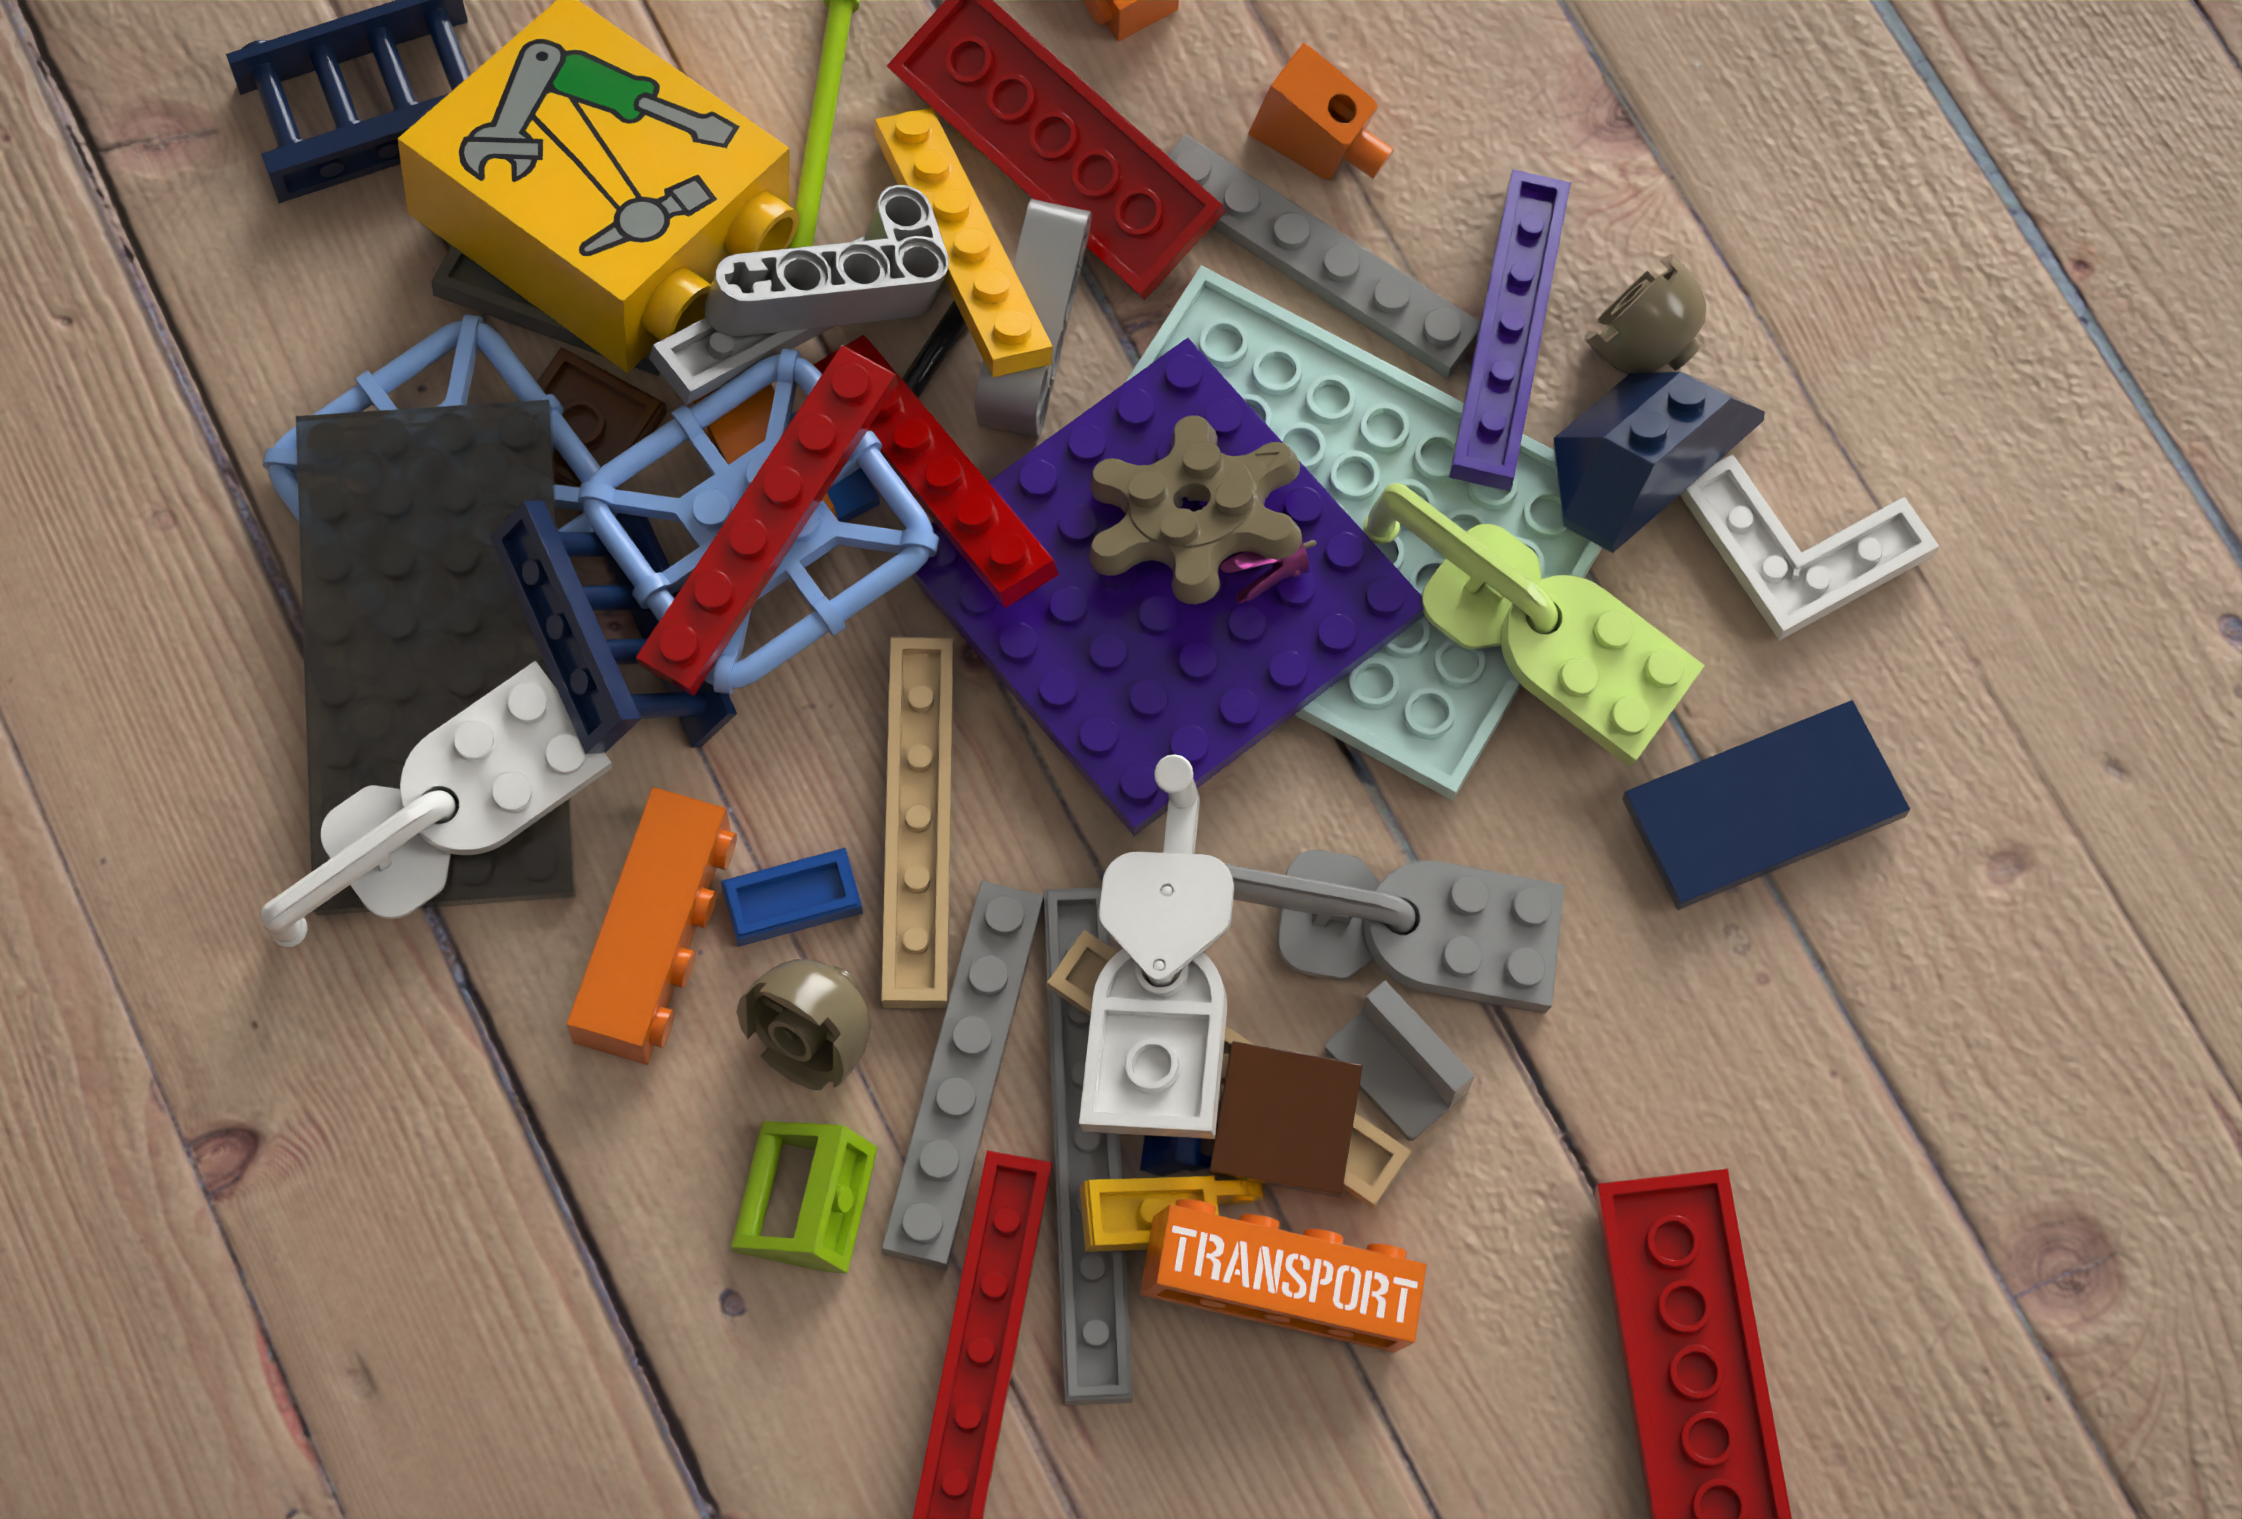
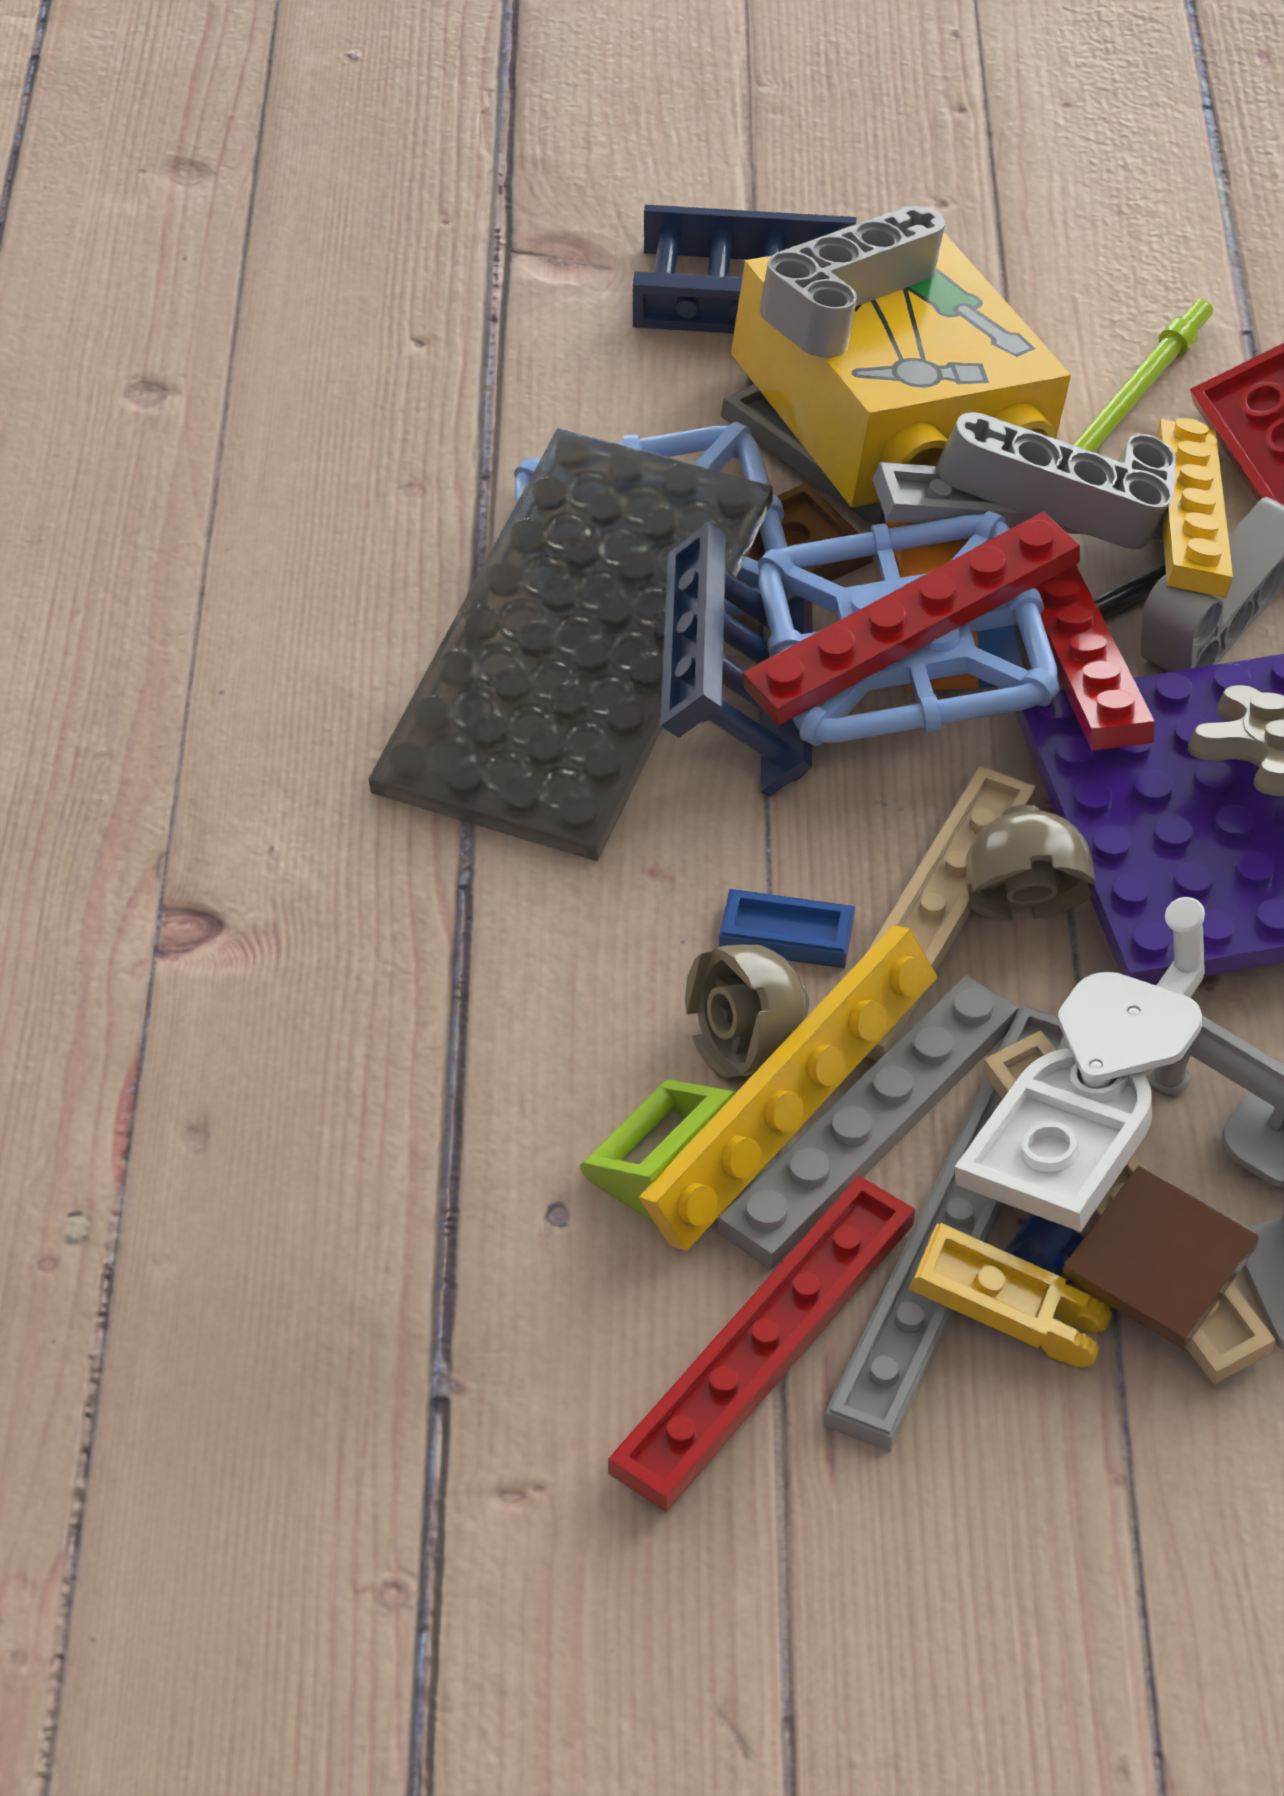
camera: 30 degrees right, 20 degrees down
(492, 155) = (818, 284): none -> light grey beam
(502, 760) = (582, 715): white plate -> none
(651, 927) = (647, 895): orange brick -> none
(889, 1093) = (788, 1088): none -> yellow plate
(990, 742) = (1026, 863): none -> dark tan cylinder
(1283, 1276) = (1093, 1384): orange brick -> none

